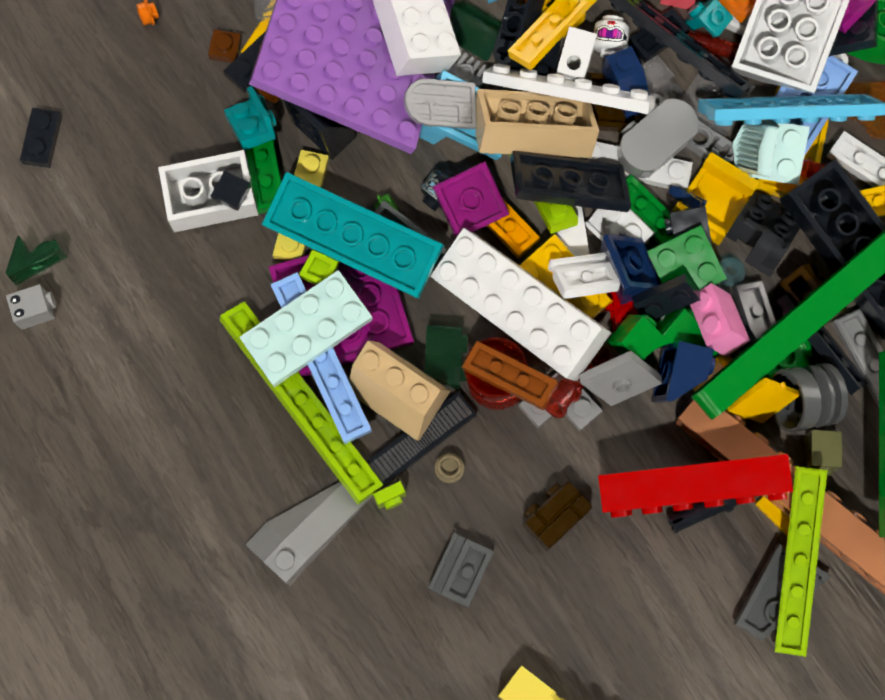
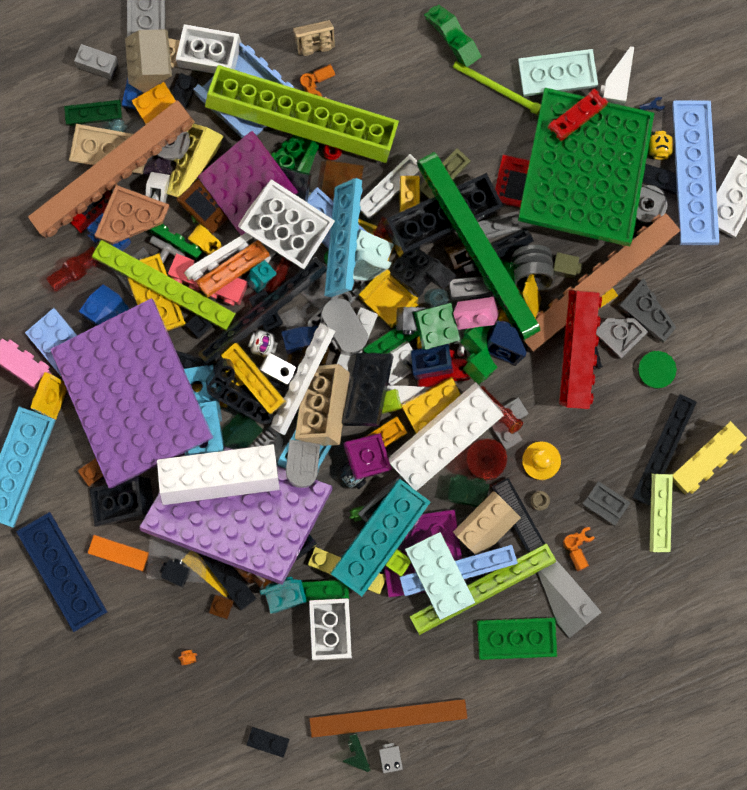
camera: 80 degrees left, 5 degrees up
(93, 299) = (388, 718): none -> dark orange tile
(231, 190) = (338, 612): black tile -> none
(233, 466) = (517, 638): none -> green tile
(390, 496) = (553, 540): lime plate -> none
(391, 526) = (572, 542): none -> orange bar
(460, 657) = (661, 513): none -> yellowish green plate
(510, 375) = (495, 450): dark orange plate -> none
(511, 461) = (541, 460): none -> yellow plate
(556, 515) = (581, 438): dark brown brick -> none
(563, 650) = (665, 447): none -> black plate
(584, 275) = (436, 392): white plate -> none
(620, 378) = (504, 382): light grey plate -> none
(666, 297) = (458, 345): black plate -> none
(688, 198) = (389, 313): dark blue piece -> none
(688, 621) = (657, 369): none -> green tile
(732, 554) = (620, 334): none -> light grey plate
(800, 561) = (633, 295): lime tile -> none

